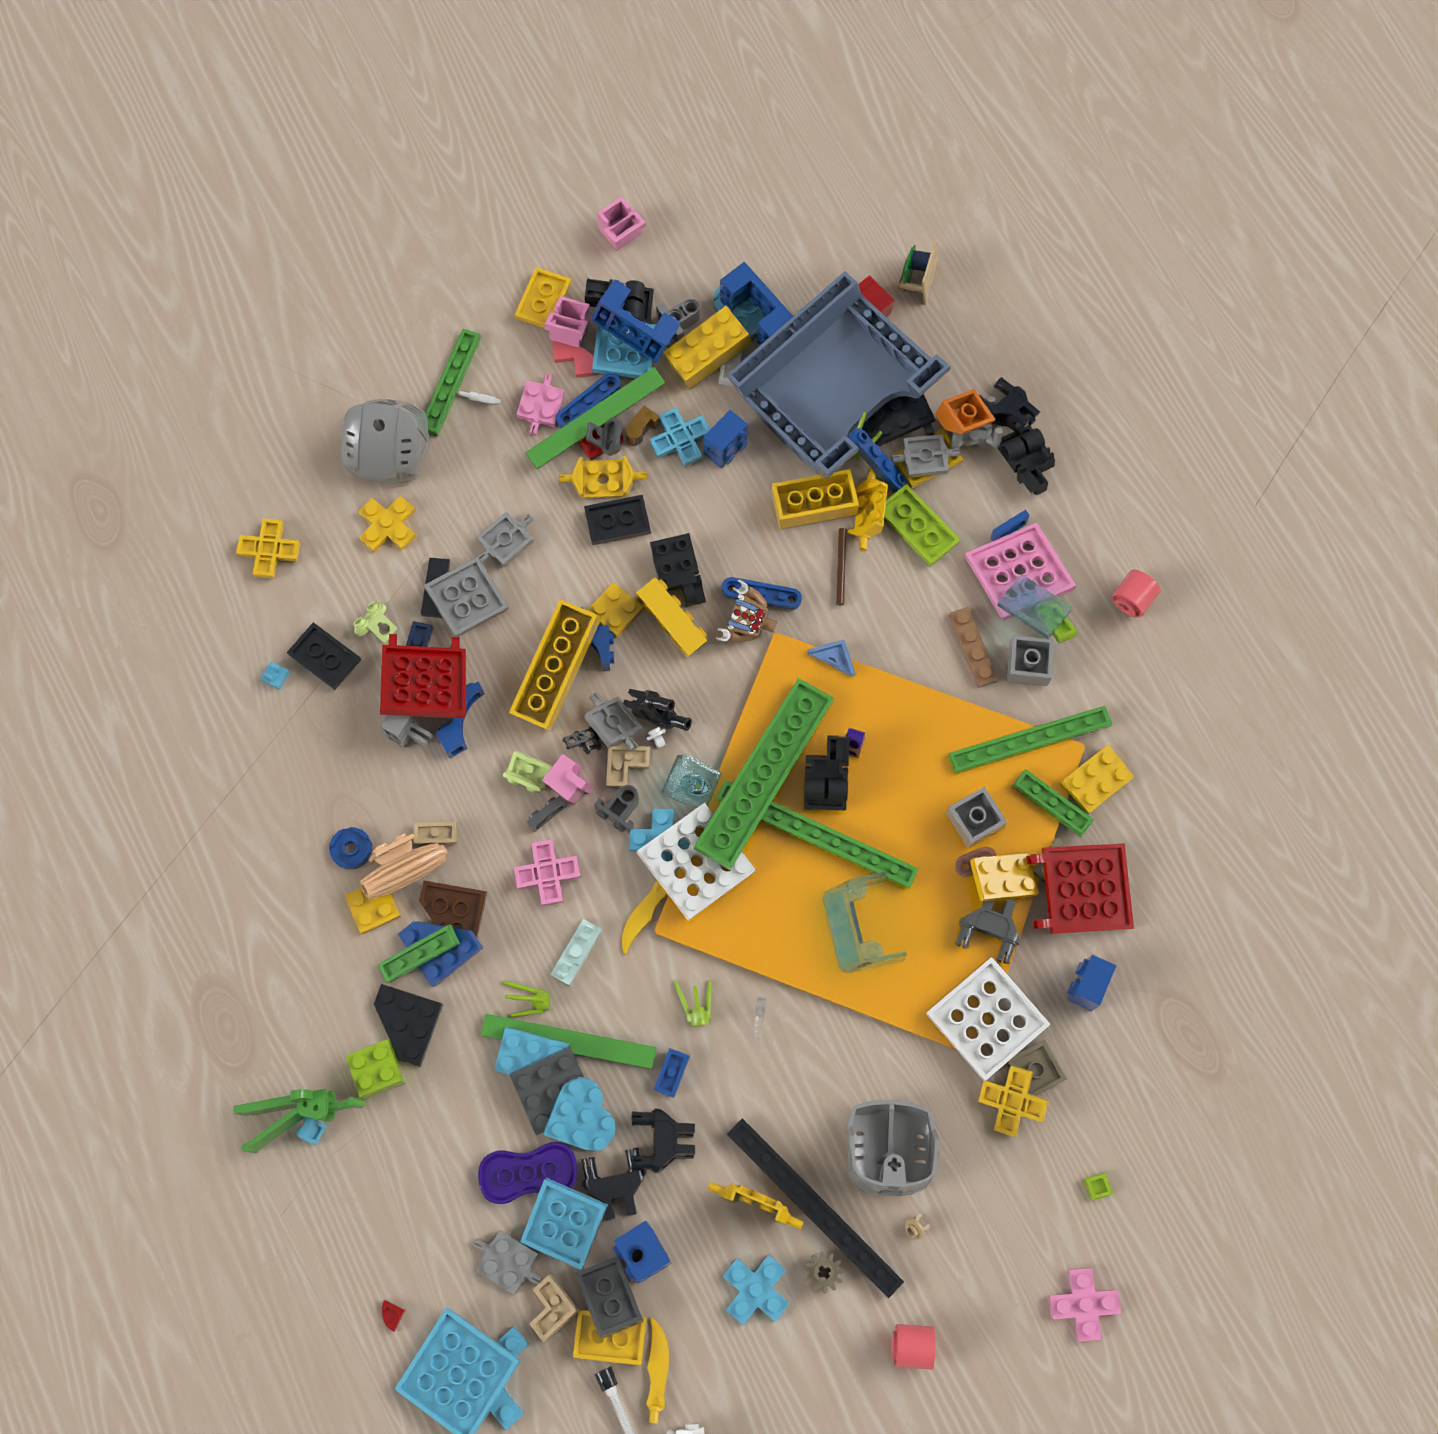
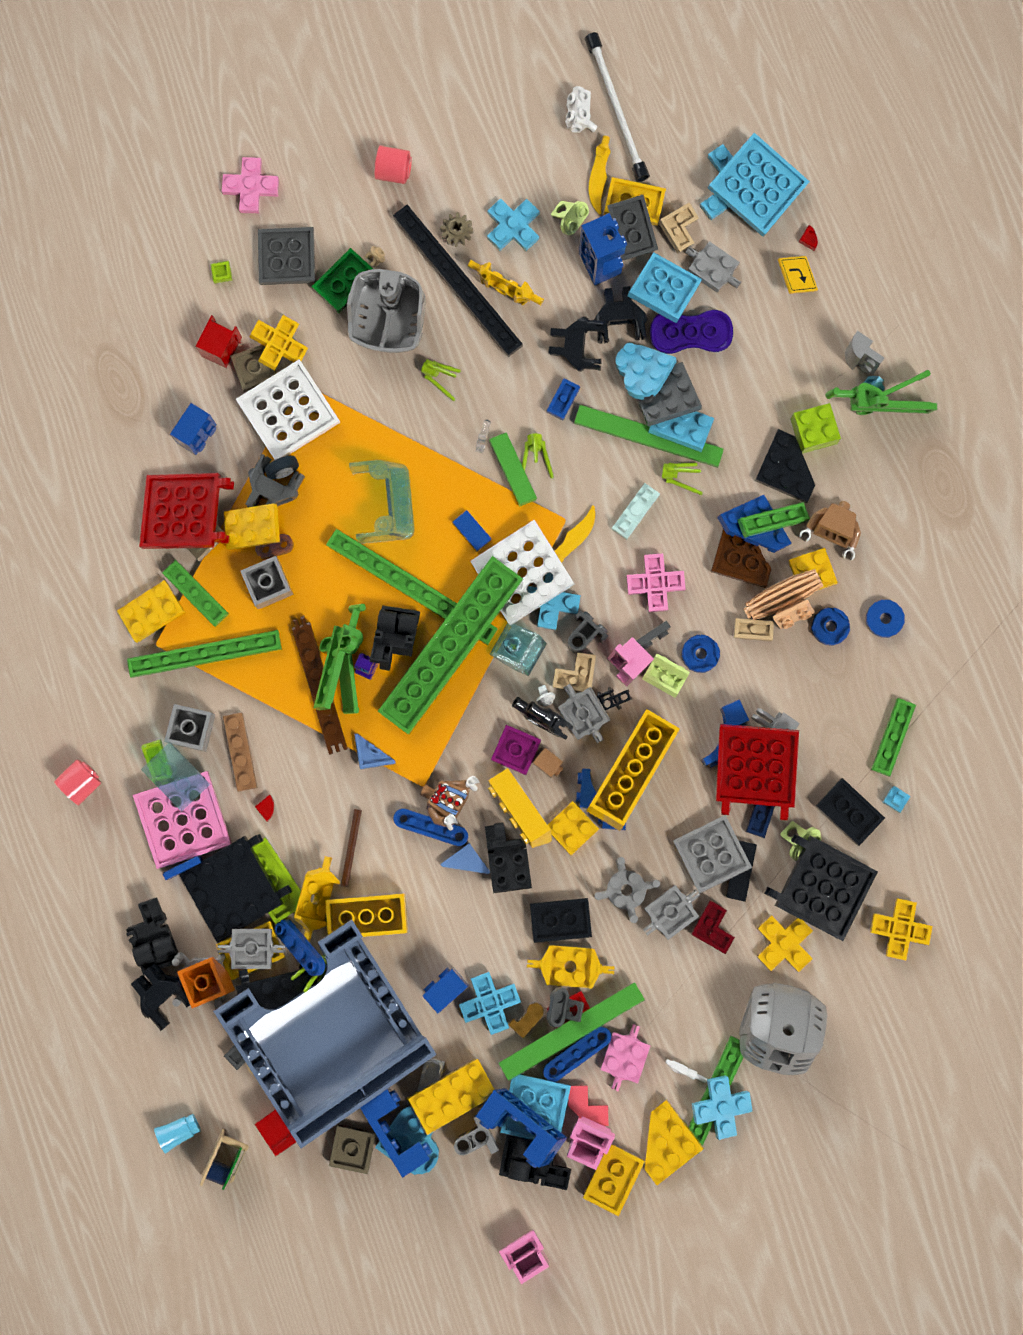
camera: 170 degrees left, 10 degrees up
(279, 738) = (893, 737): none -> bright green tile
(282, 854) = (896, 616): none -> blue tile
(327, 1163) = (861, 354): none -> light grey brick
(347, 956) = (837, 526): none -> medium nougat torso
(348, 576) = (824, 887): none -> black plate
(404, 1261) = (797, 274): none -> yellow piece
(442, 368) = (722, 1107): none -> medium azure plate
(465, 527) = (708, 930): none -> dark red plate
(491, 333) = (668, 1143): none -> yellow plate
(498, 813) = (708, 645): none -> blue tile
(552, 545) = (638, 889): none -> light grey plate
(646, 668) = (548, 763): none -> medium nougat brick
(682, 679) = (516, 750): none -> magenta plate
(684, 1306) = (572, 216): none -> yellowish green bracket
(720, 566) = (467, 860): none -> medium blue tile
(720, 982) = (512, 469): none -> bright green tile
(758, 905) = (471, 530): none -> blue tile
(796, 293) = (352, 1149): none -> dark tan plate
(829, 1091) = (432, 368): none -> lime plant
(882, 754) = (340, 664): none -> bright green piece
(902, 721) = (313, 670): none -> reddish brown hinge
(935, 595) = (266, 807): none -> red tile
(949, 1191) = (338, 280): none -> green plate
(954, 512) = (233, 888): none -> black plate
(968, 292) = (176, 1132): none -> medium azure plant
(982, 947) = (281, 467): none -> black wheel
(1023, 1214) = (286, 256): none -> dark grey plate
(1083, 1092) = (218, 342): none -> red piece

